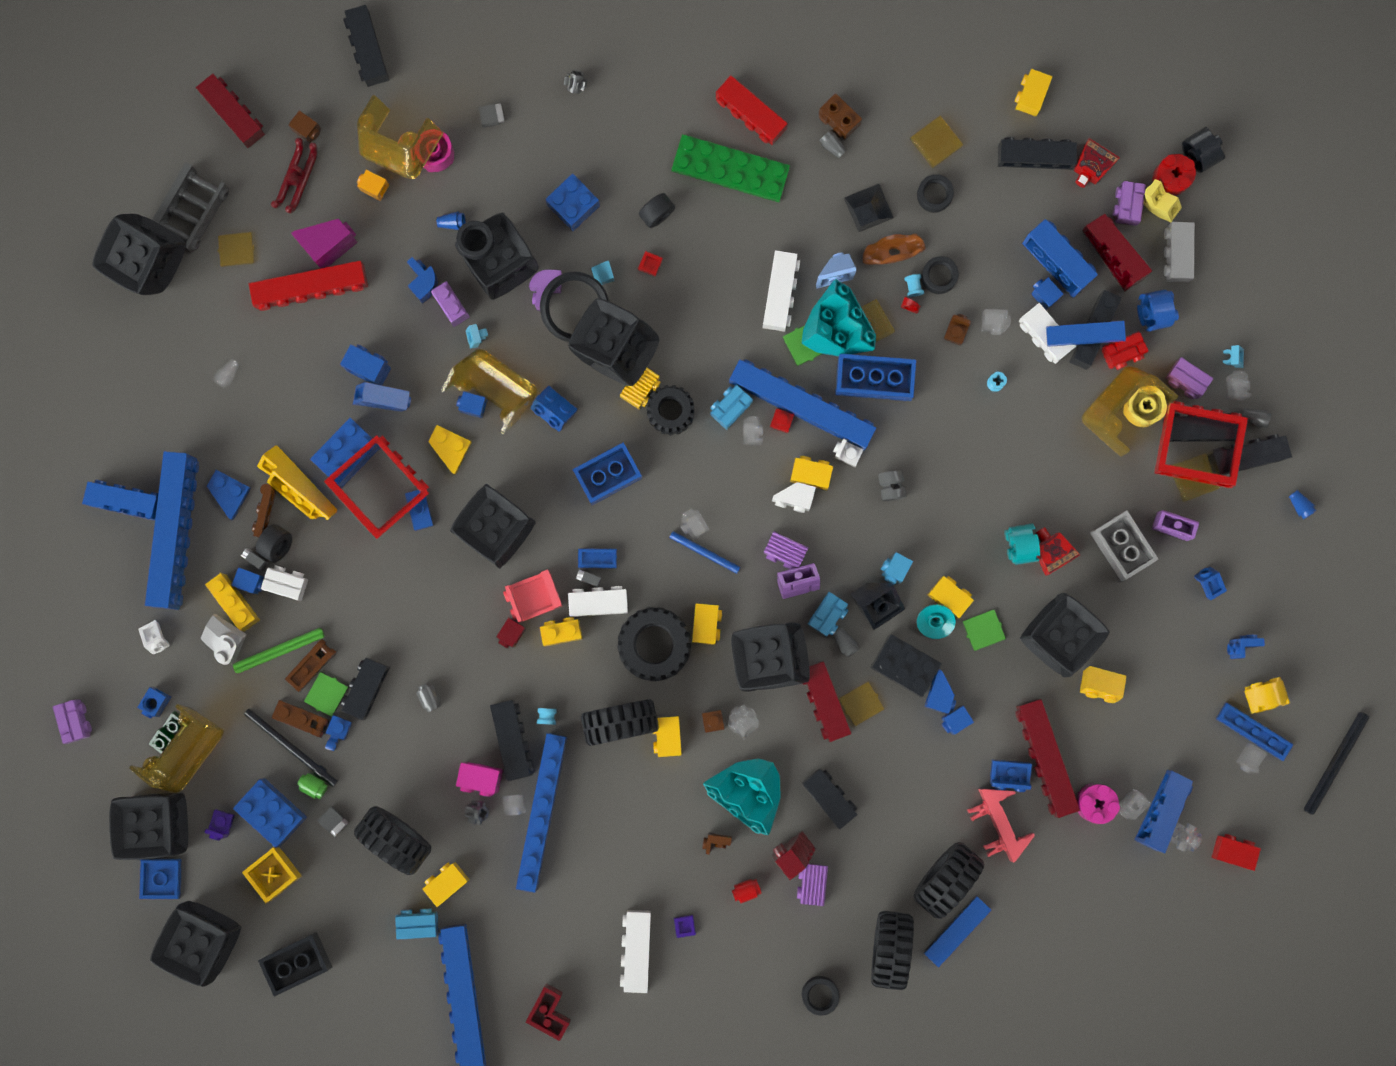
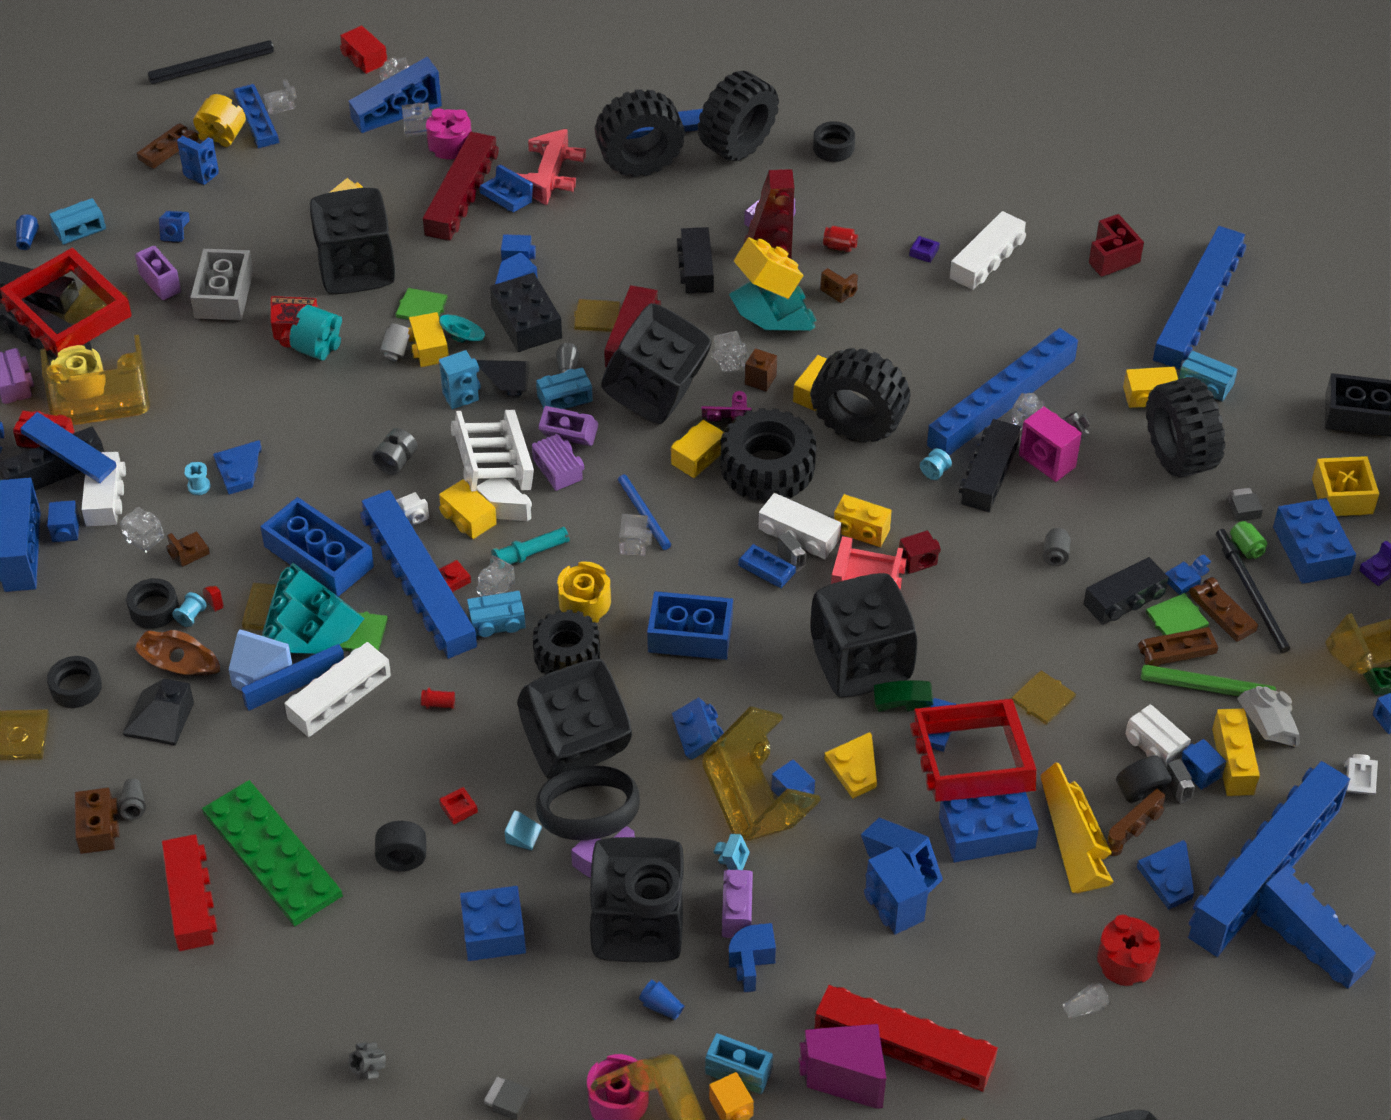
camera: 145 degrees left, 35 degrees down
(209, 415) = (1128, 950): none -> red brick
(371, 574) = (1043, 697): none -> clear yellow piece
(382, 206) = (733, 1056): none -> dark azure brick
(446, 515) = (911, 693): none -> dark green slope
(696, 447) = (584, 590): none -> yellow brick
(705, 664) = (739, 407): none -> magenta hinge
(719, 326) = (437, 698): none -> red pin
(755, 464) = (520, 550): none -> teal pin
(758, 797) = (768, 267): none -> yellow brick
(812, 281) = (290, 677): none -> blue tile
(824, 542) = (512, 441): none -> white fence
(968, 576) = (395, 342): none -> light grey brick
(983, 412) = (238, 466): none -> blue wing
(1277, 537) = (77, 221): none -> dark azure brick
(1286, 653) = (165, 146): none -> reddish brown plate

